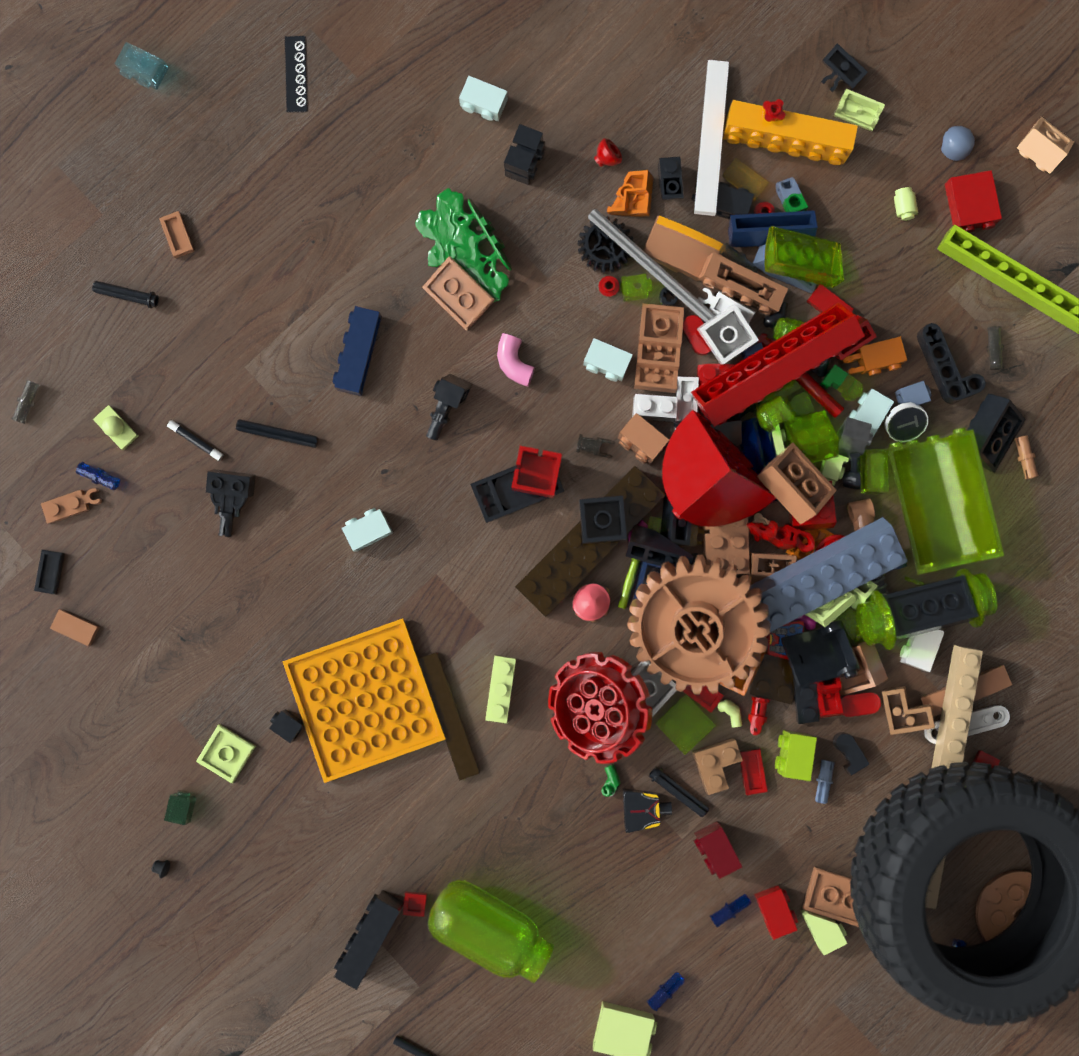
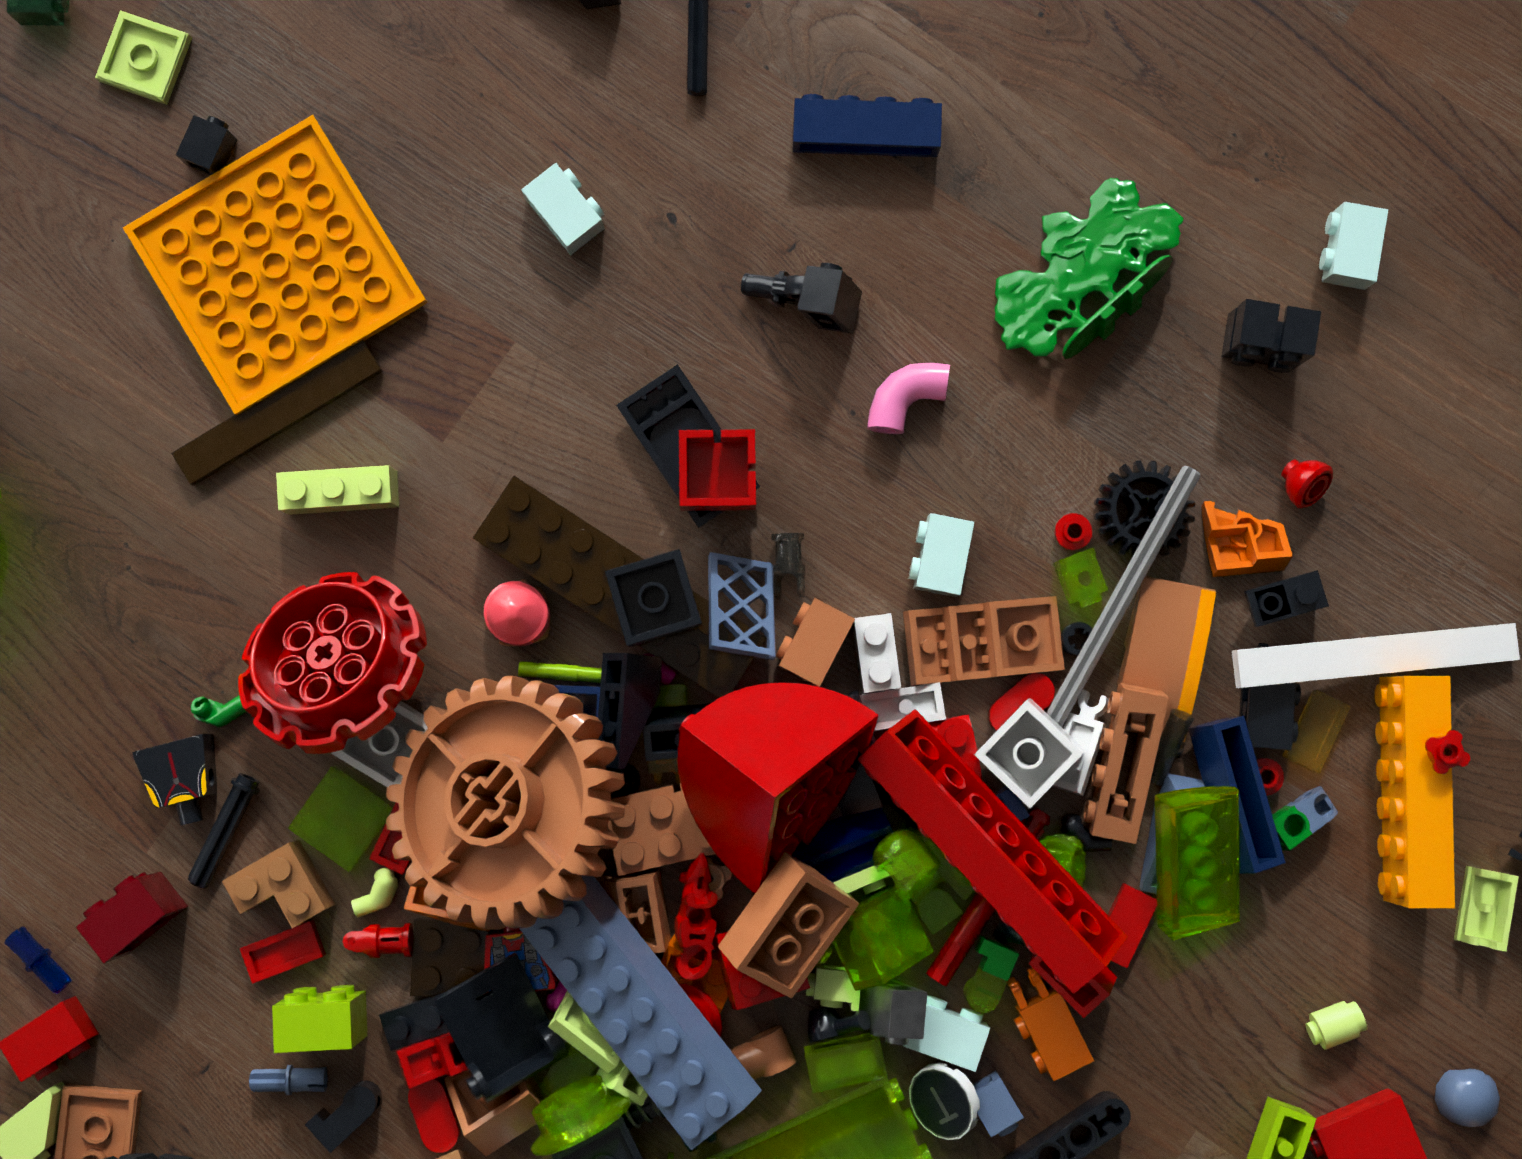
camera: 70 degrees right, 0 degrees up
(458, 293) = (1004, 276): nougat tile -> none
(618, 489) = (716, 584): none -> sand blue window

